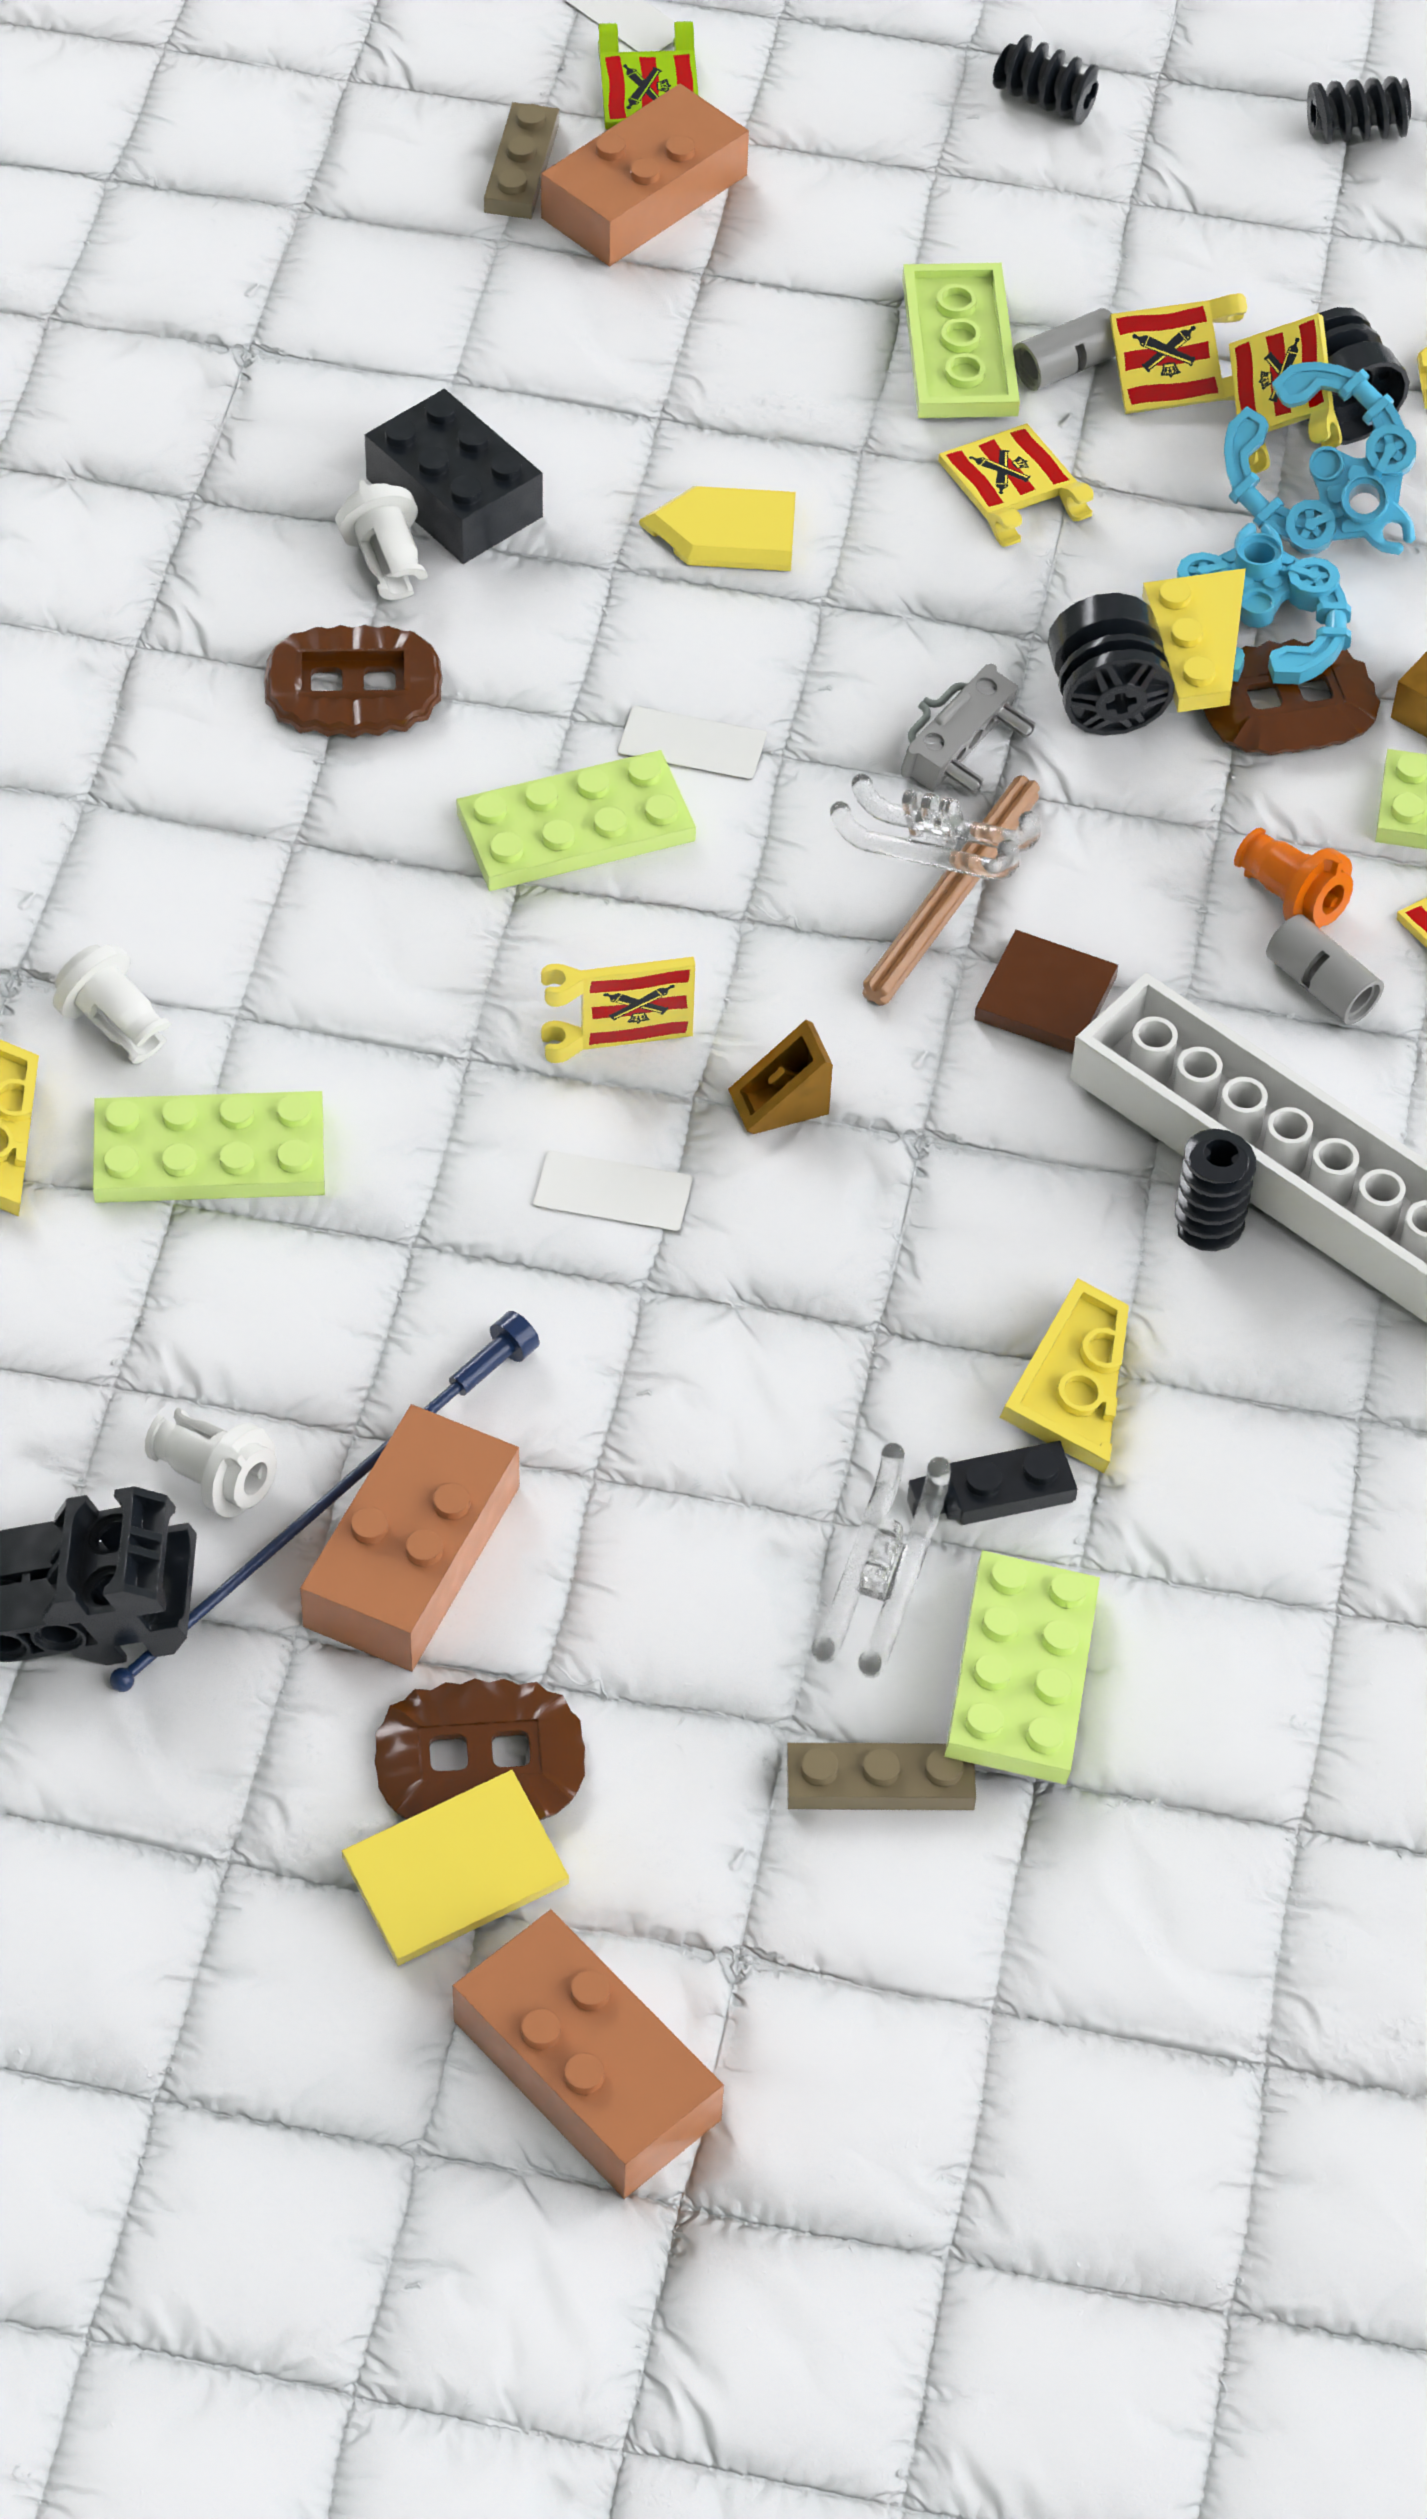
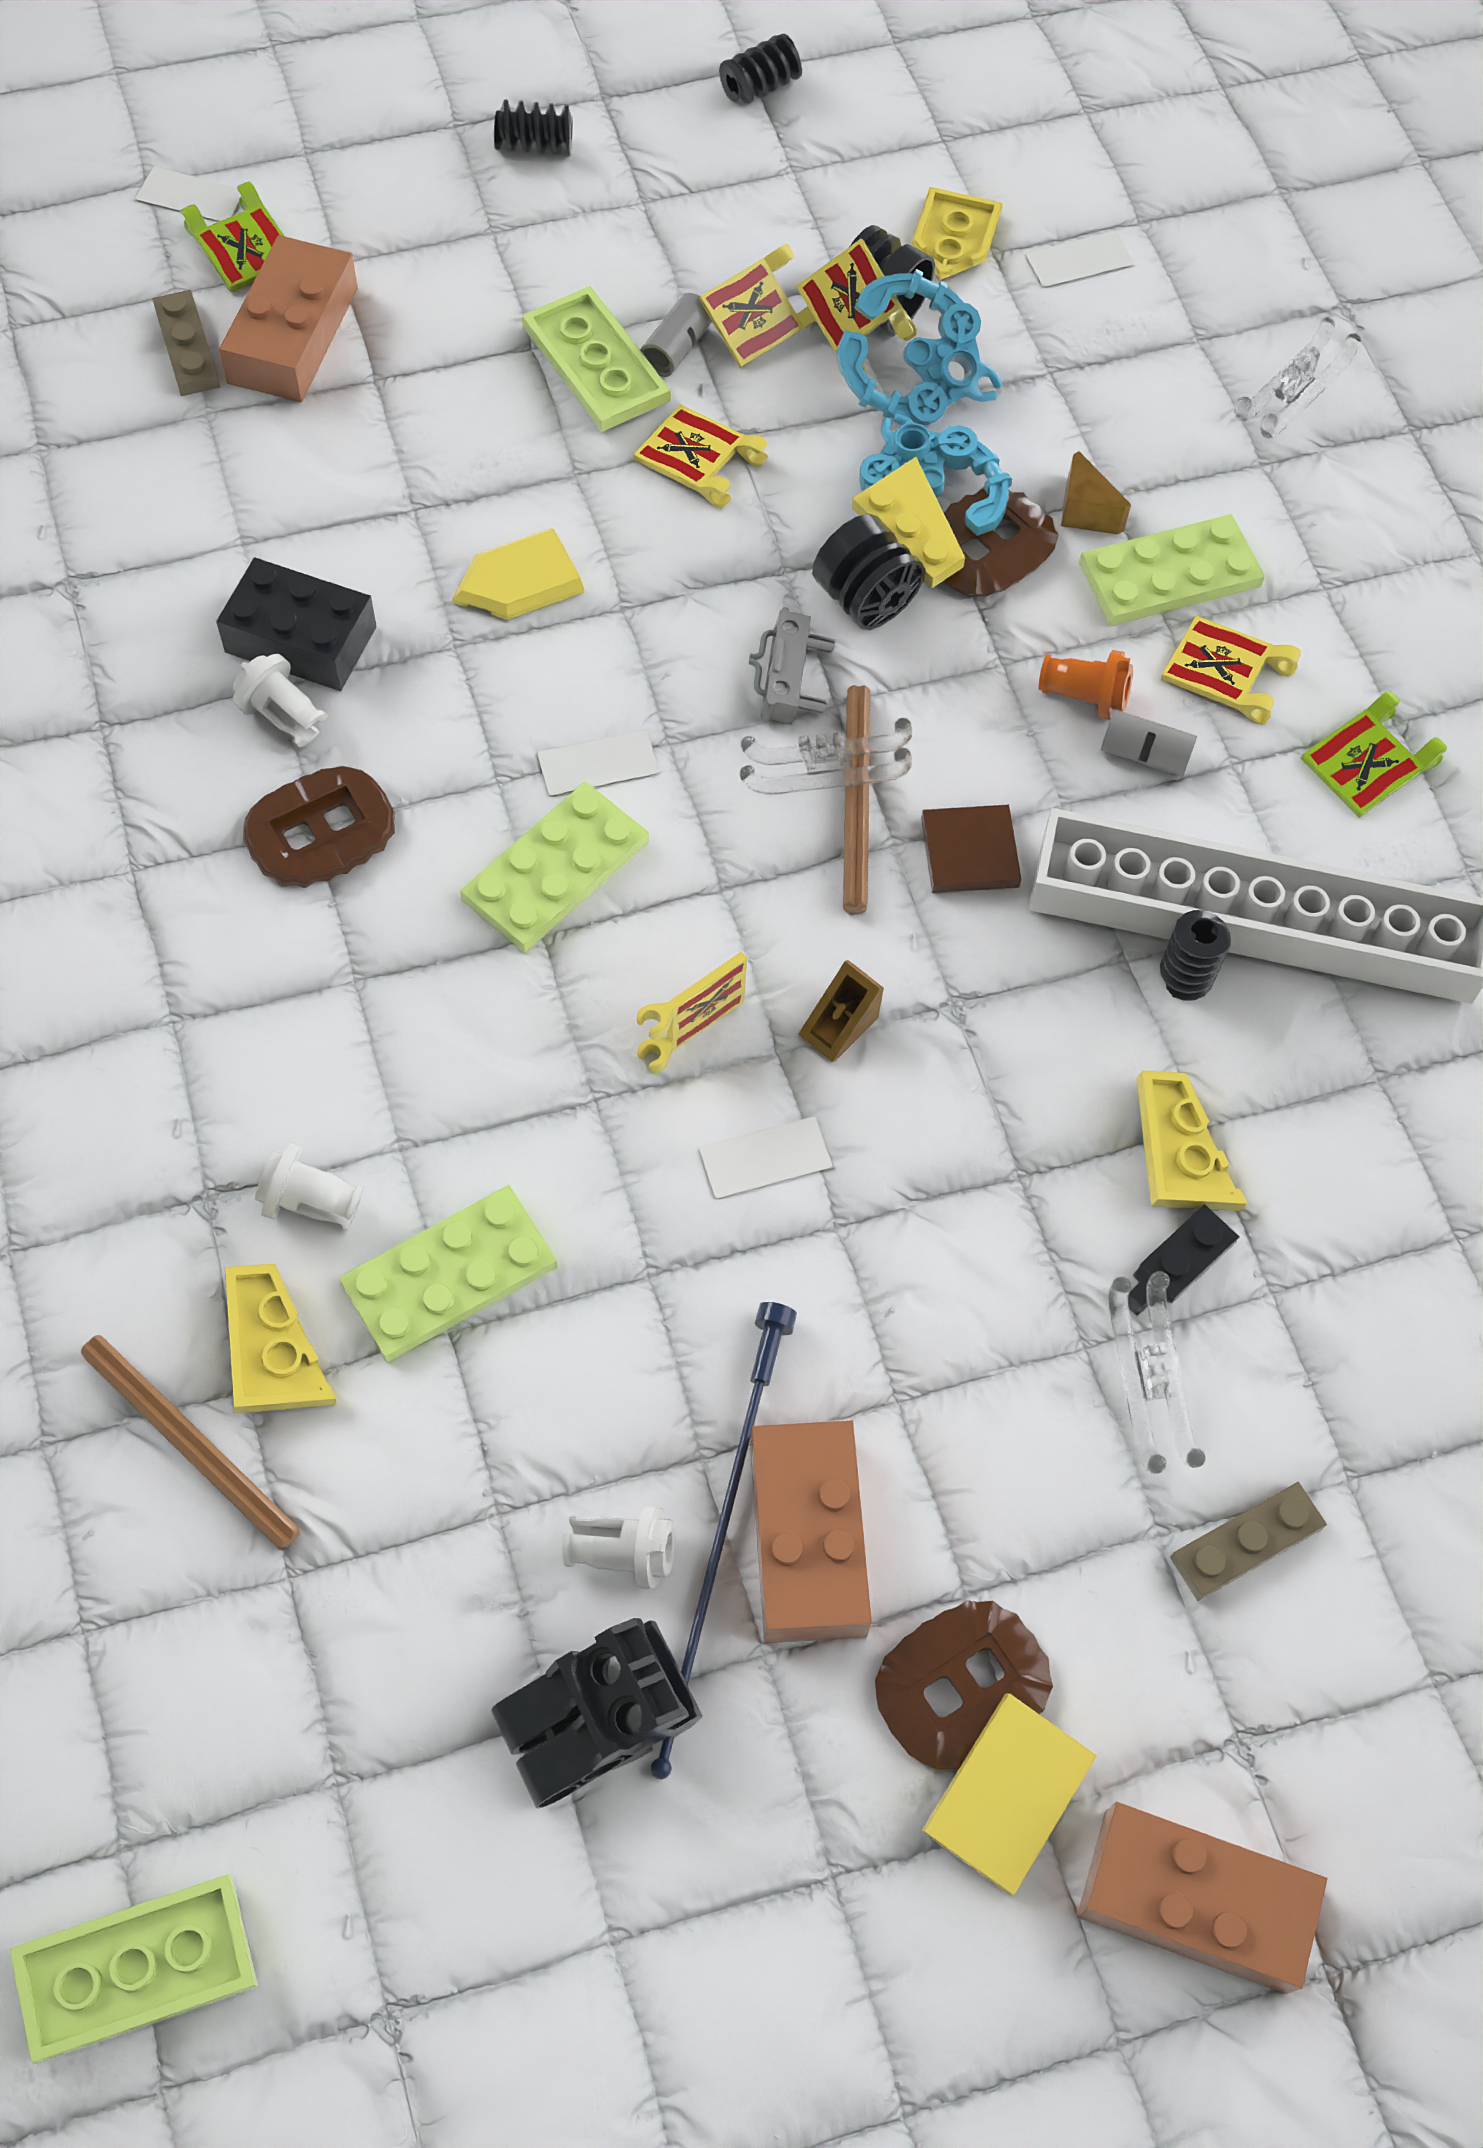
camera: 30 degrees left, 10 degrees up
(1023, 1667) = (1296, 1402): yellowish green plate -> none

